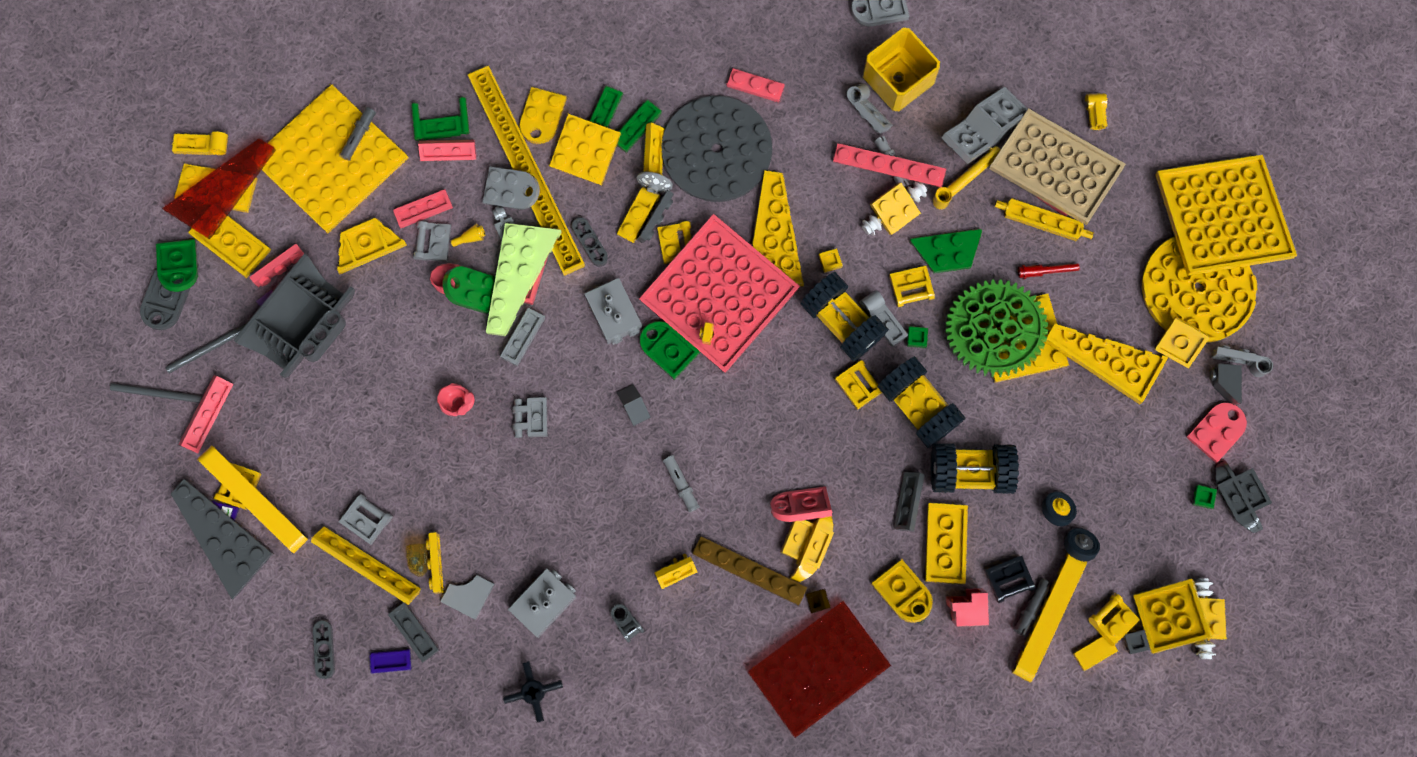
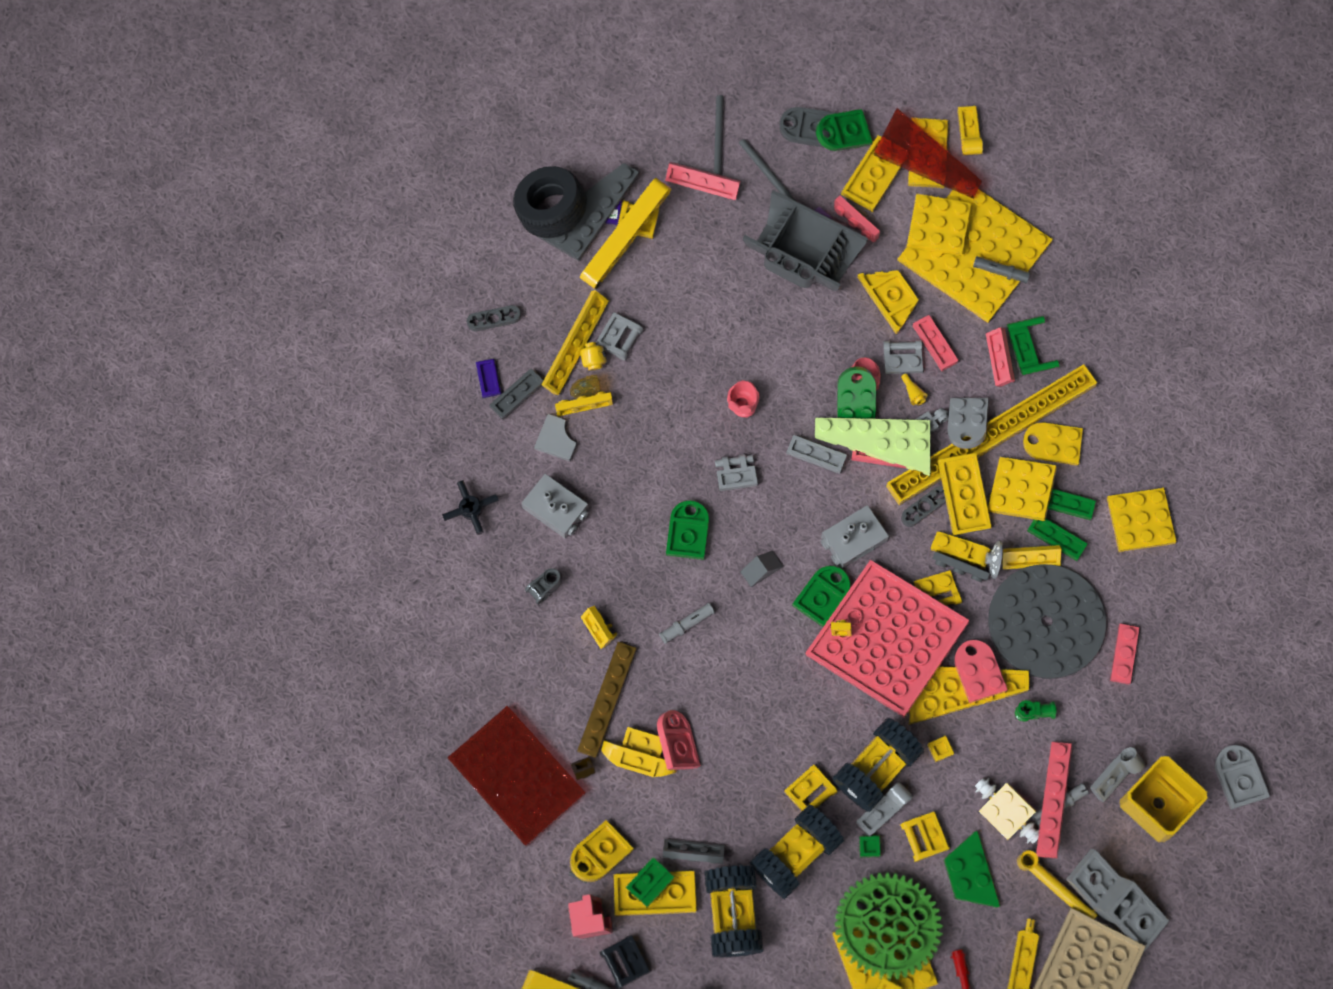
camera: 85 degrees right, 5 degrees down
(179, 580) = (540, 185): none -> black tyre
(298, 186) = (938, 224): none -> yellow plate
(384, 548) = (593, 356): none -> yellow head
(584, 202) = (964, 494): none -> yellow plate
(587, 473) = (687, 532): none -> green plate
(628, 50) = (1141, 519): none -> yellow plate
(762, 213) = (980, 672): none -> coral plate
(802, 170) = (1035, 710): none -> green connector
(939, 545) = (650, 882): none -> green plate

